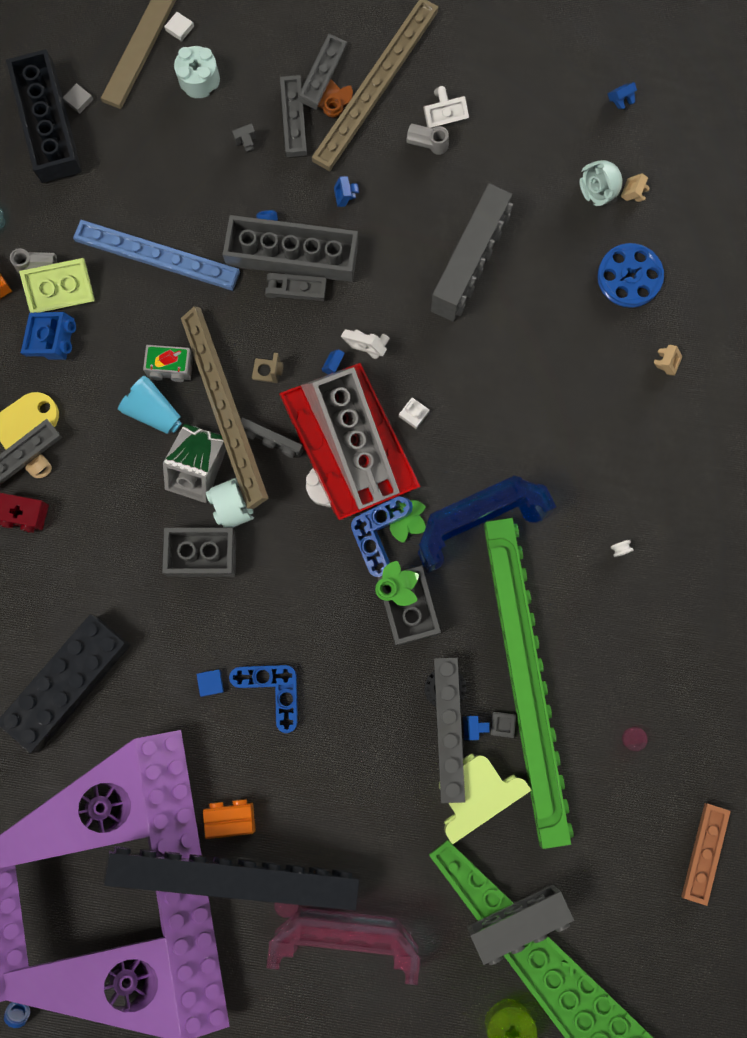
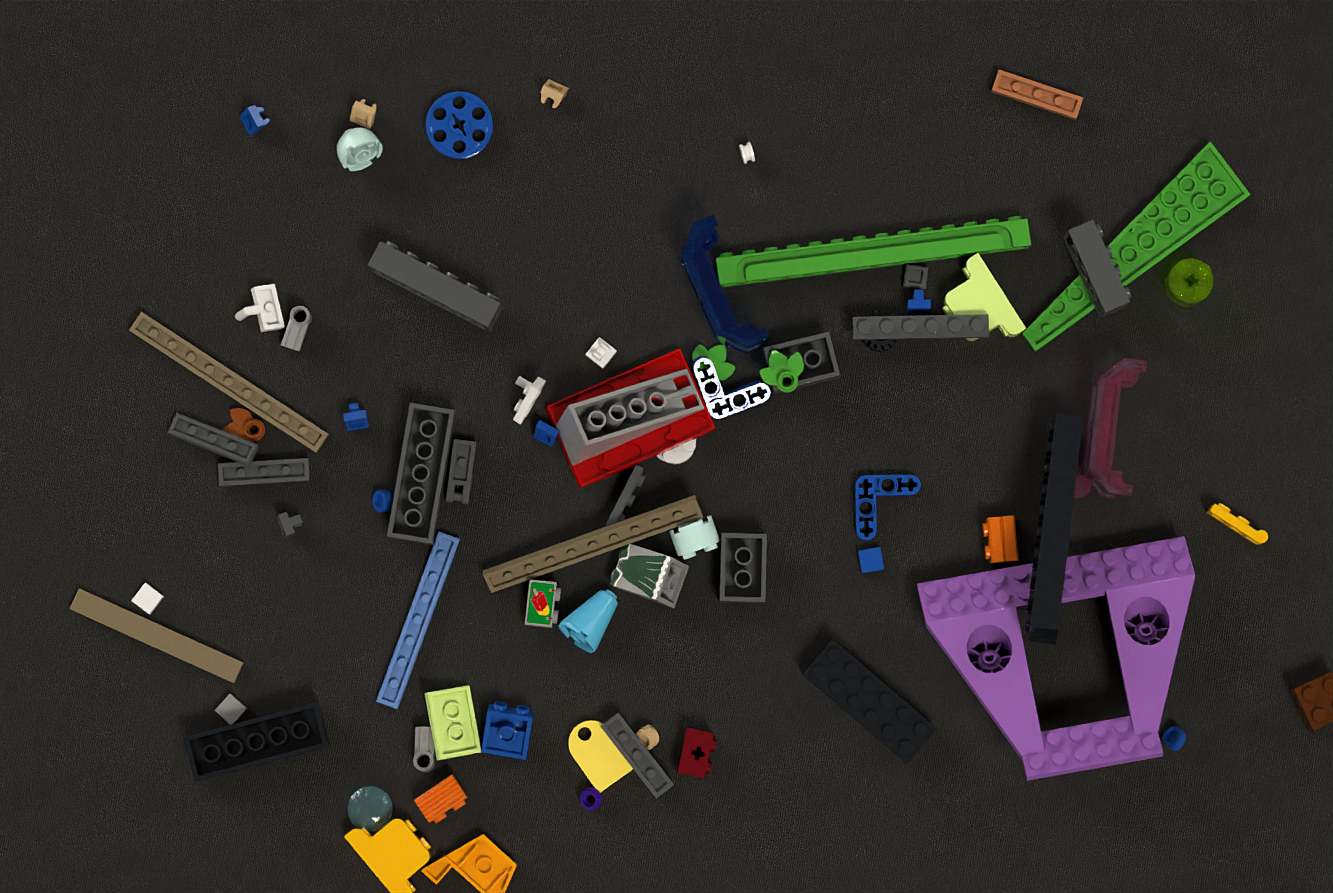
camera: 95 degrees left, 5 degrees up
(196, 71) = (202, 565): light aqua brick -> none
(276, 369) = (552, 493): dark tan bracket -> none
(634, 739) = (930, 152): clear pink tile -> none

